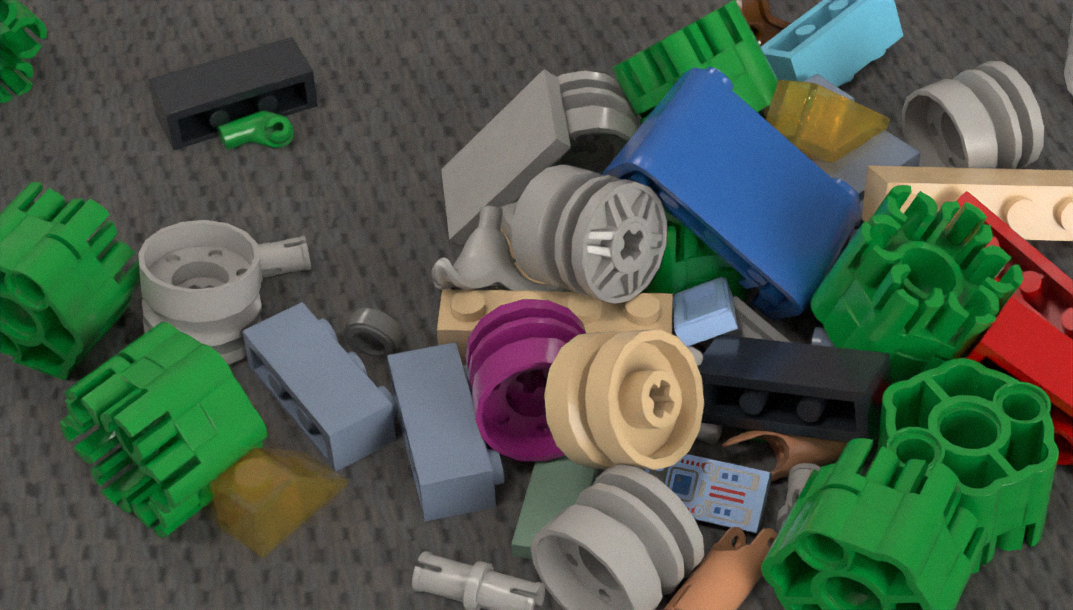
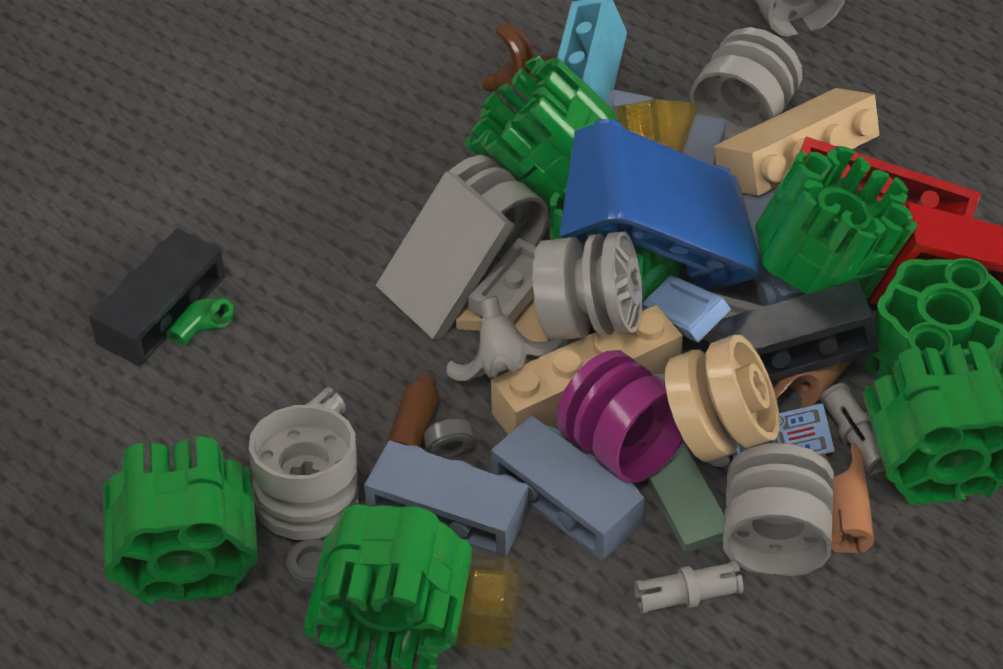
camera: 35 degrees left, 5 degrees up
(375, 290) = (415, 411): none -> reddish brown cylinder

